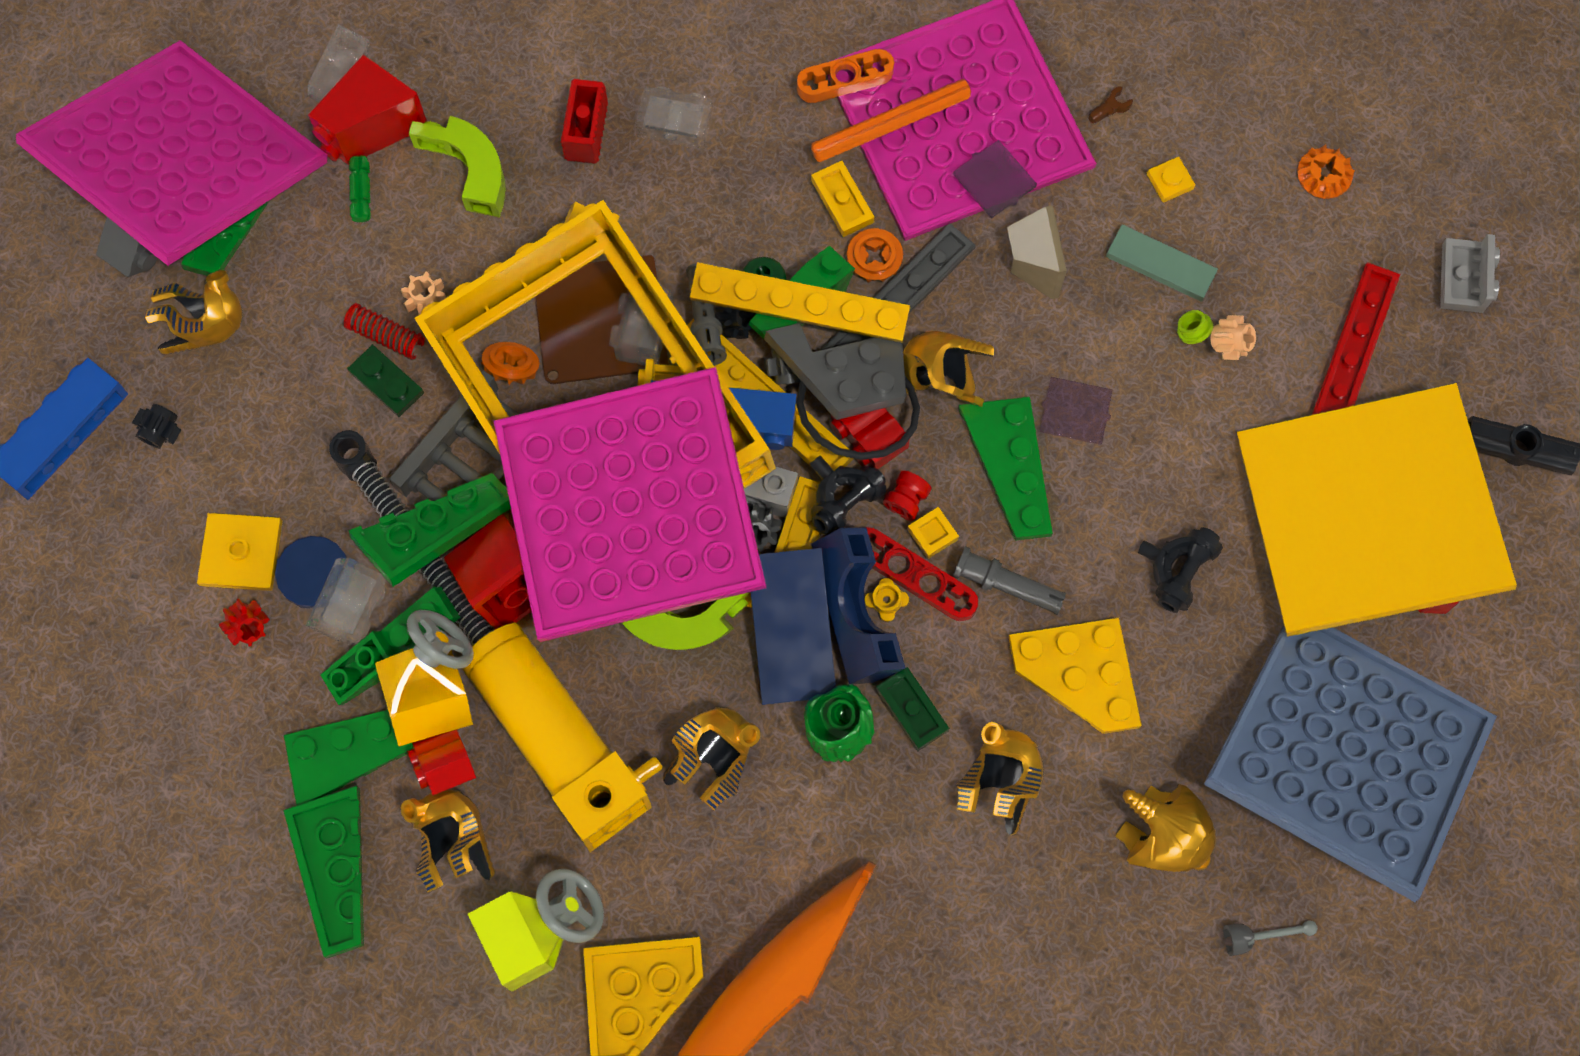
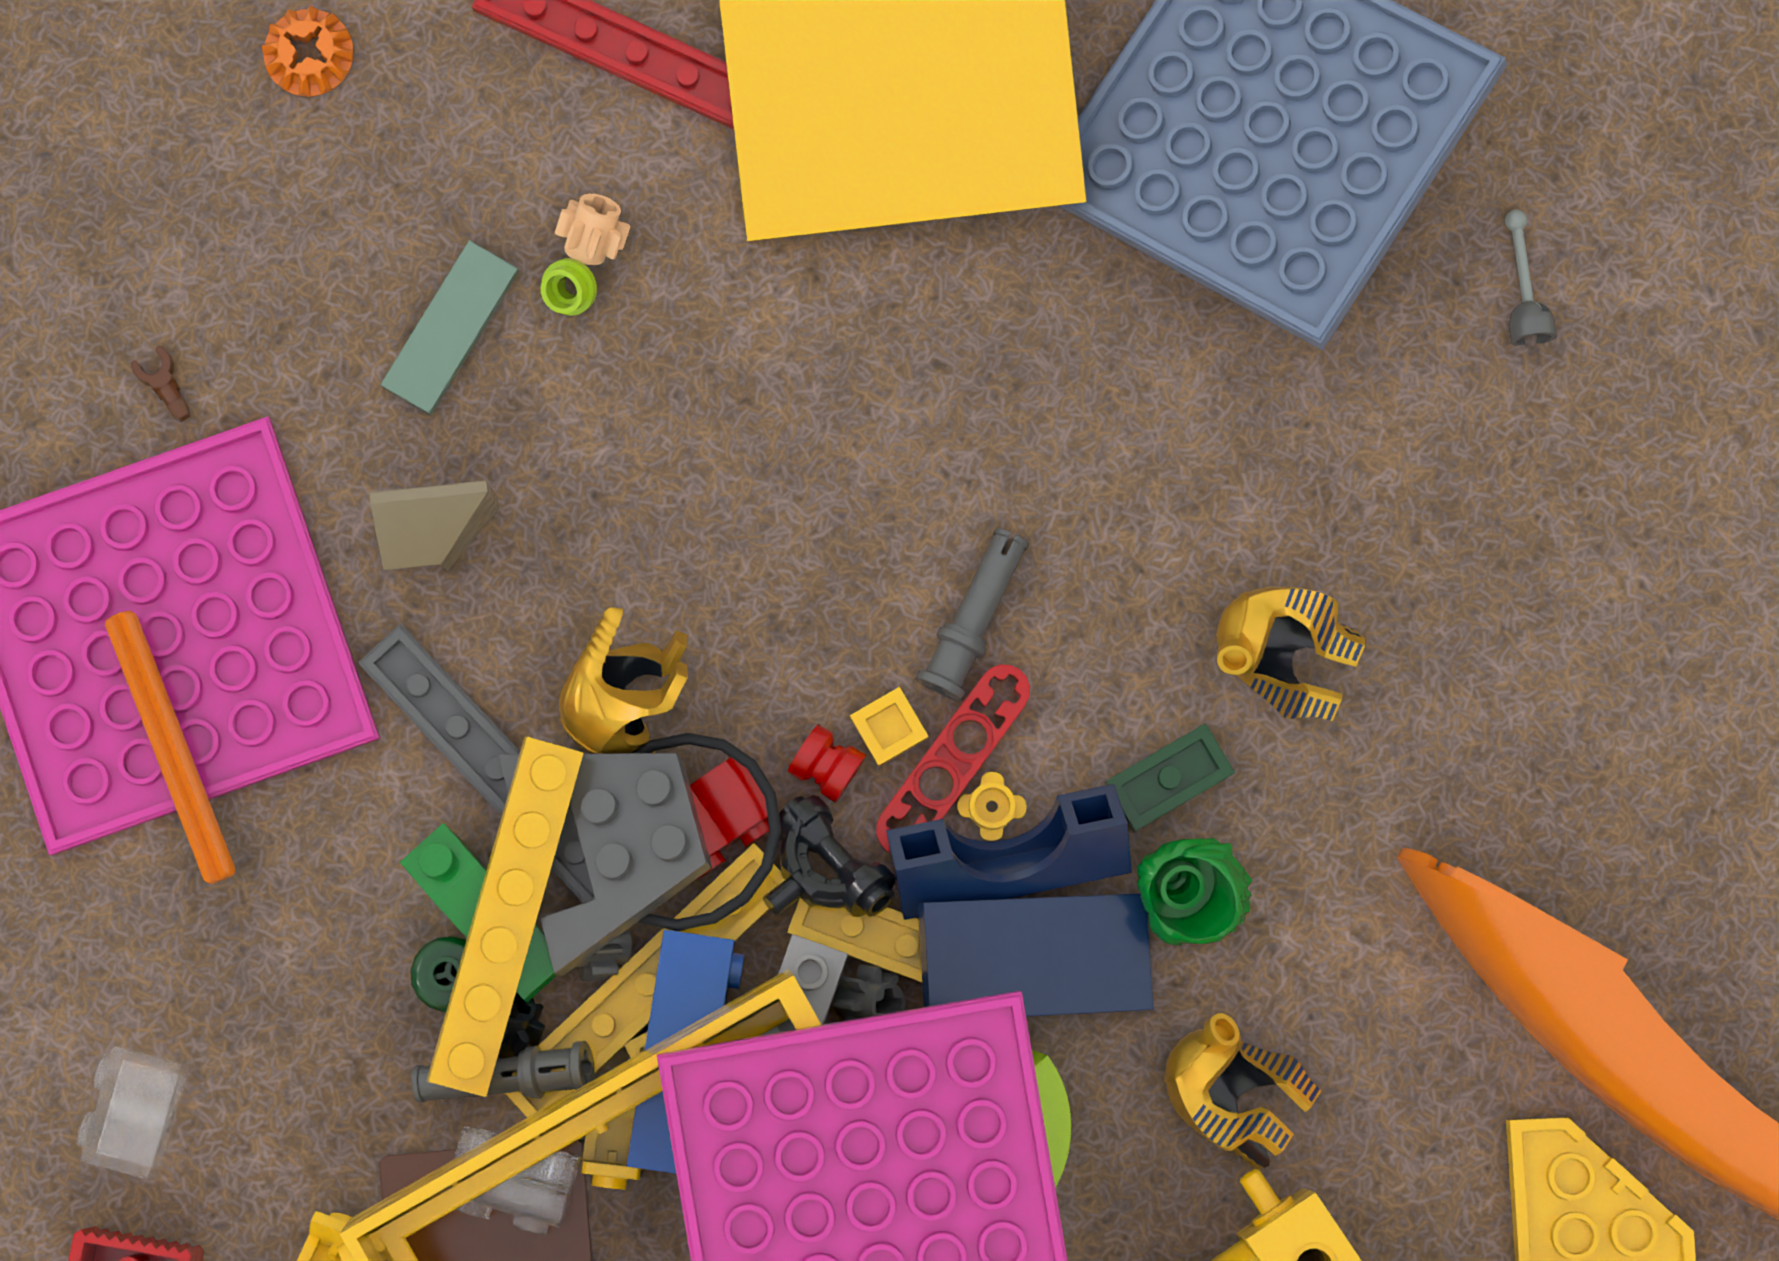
camera: 90 degrees left, 10 degrees up
(842, 198) = (302, 836): yellow plate -> none
(866, 59) = (84, 773): orange beam -> none
(874, 240) = (378, 789): orange gear -> none
(994, 179) = (286, 583): clear purple piece -> none
(1011, 458) = (769, 595): green wing -> none
(1076, 410) = (693, 486): piece -> none
(1081, 670) = (1117, 515): yellow plate -> none
(1171, 179) = (303, 298): yellow plate -> none
(1175, 591) = (1000, 359): black piece -> none
(1180, 831) = (1388, 393): pearl gold piece -> none

